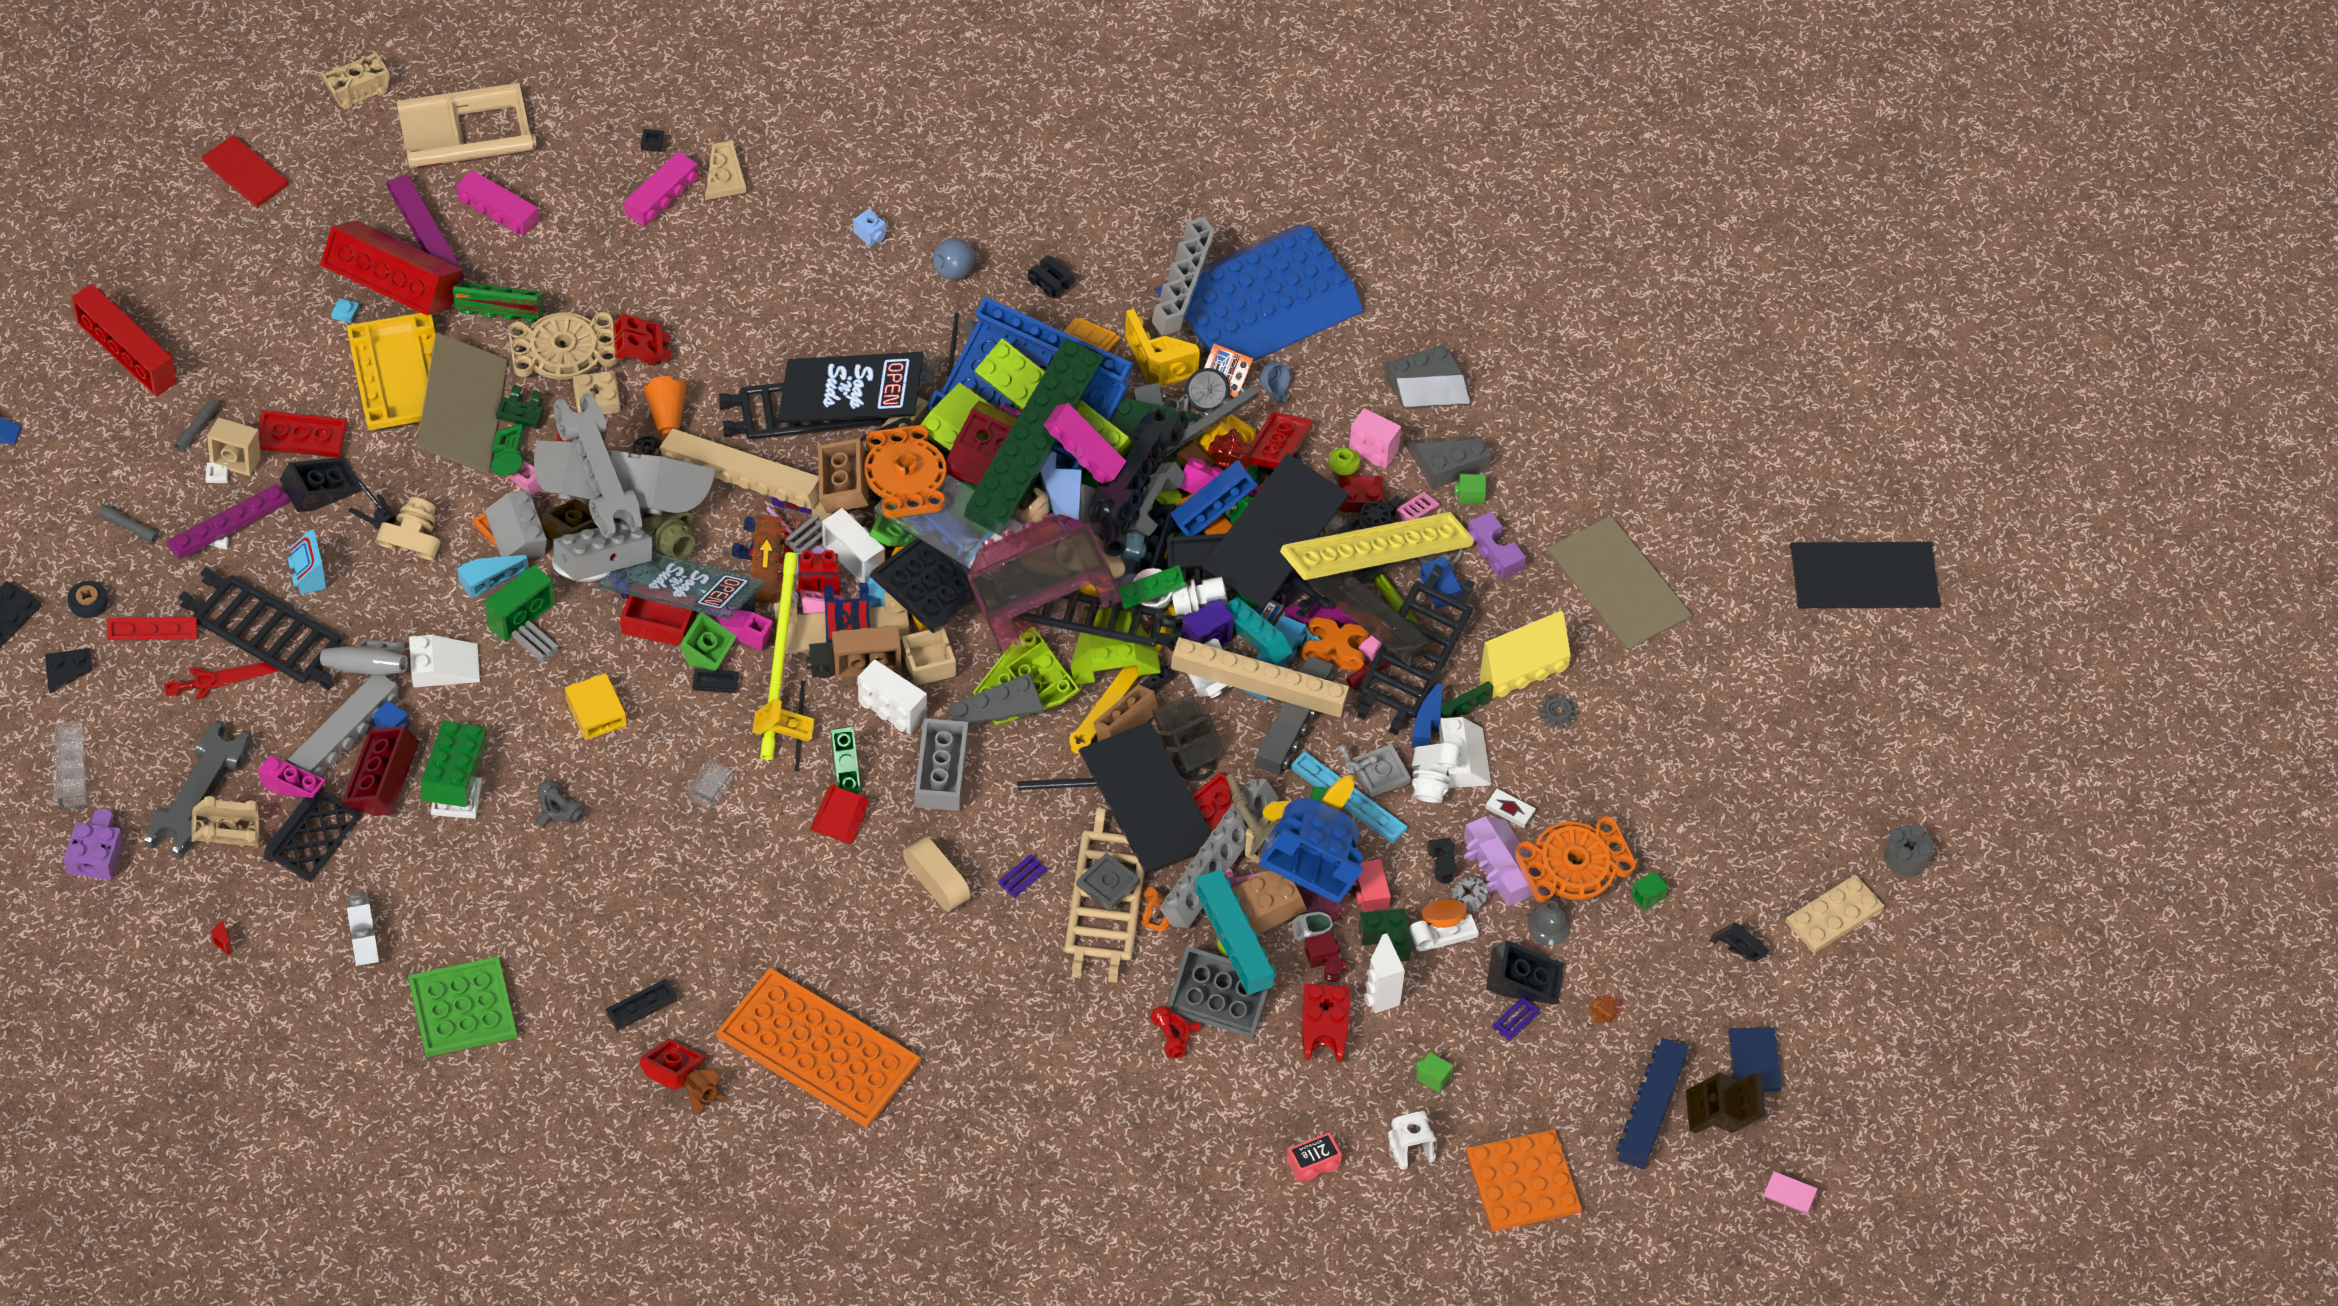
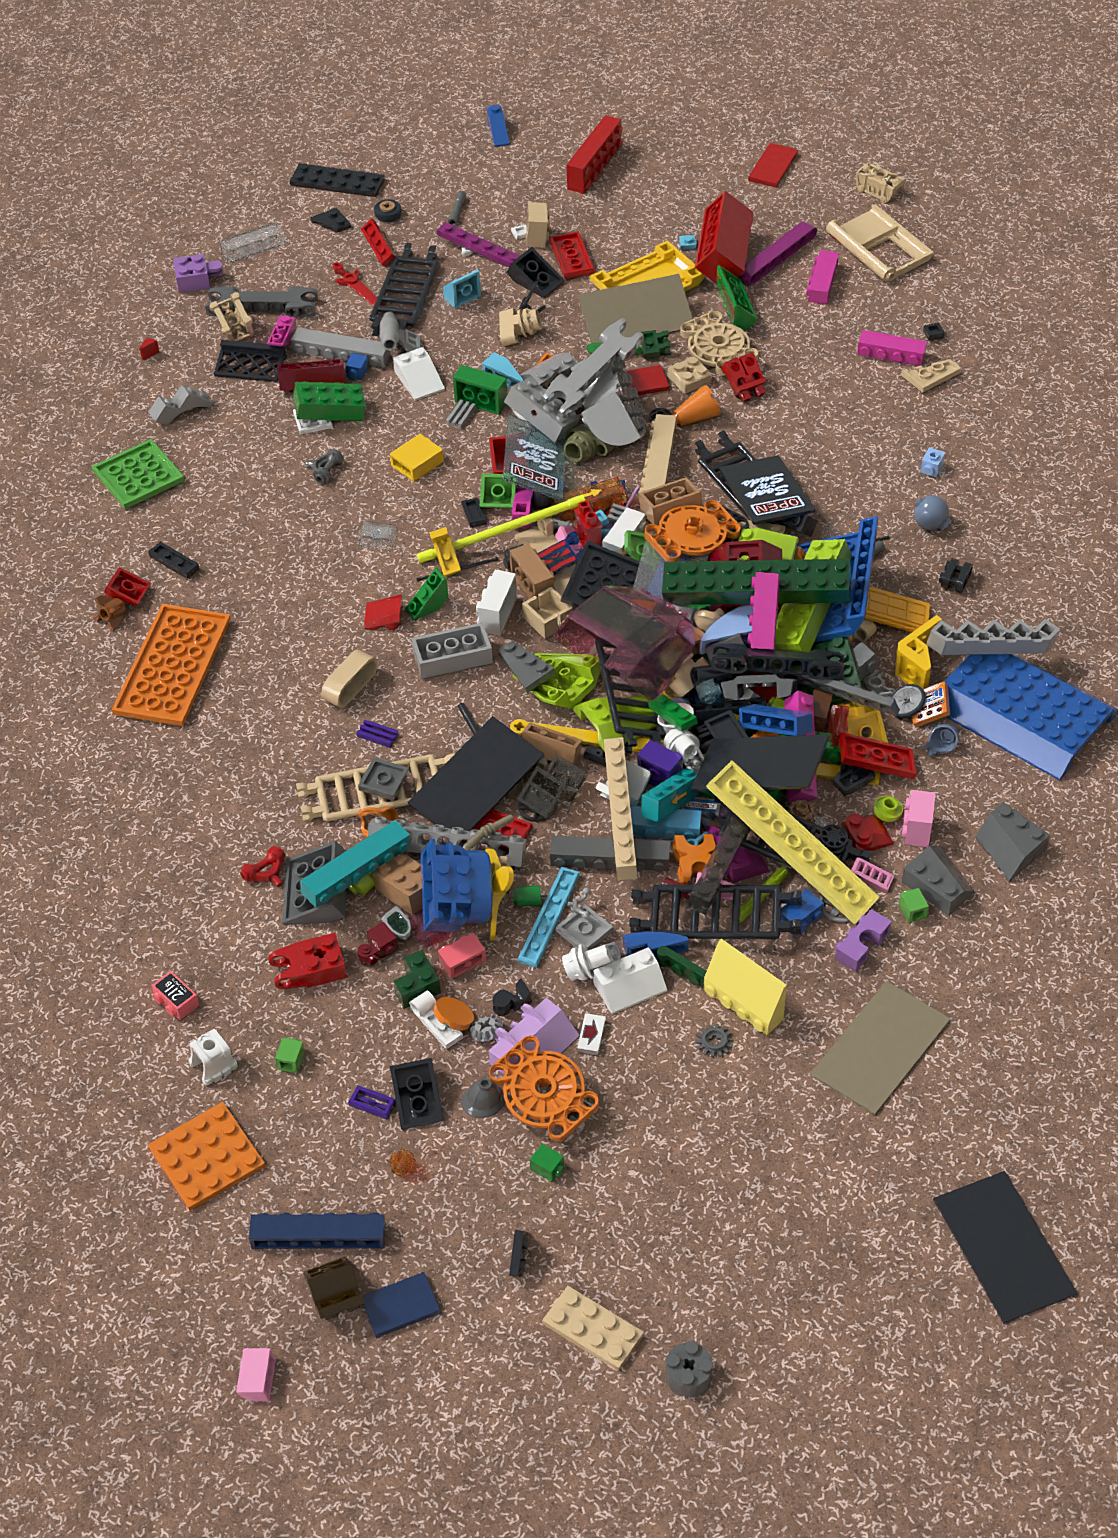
camera: 75 degrees right, 5 degrees down
(189, 434) = (562, 211): dark grey piece -> none
(1384, 977) = (360, 980): white slope -> none

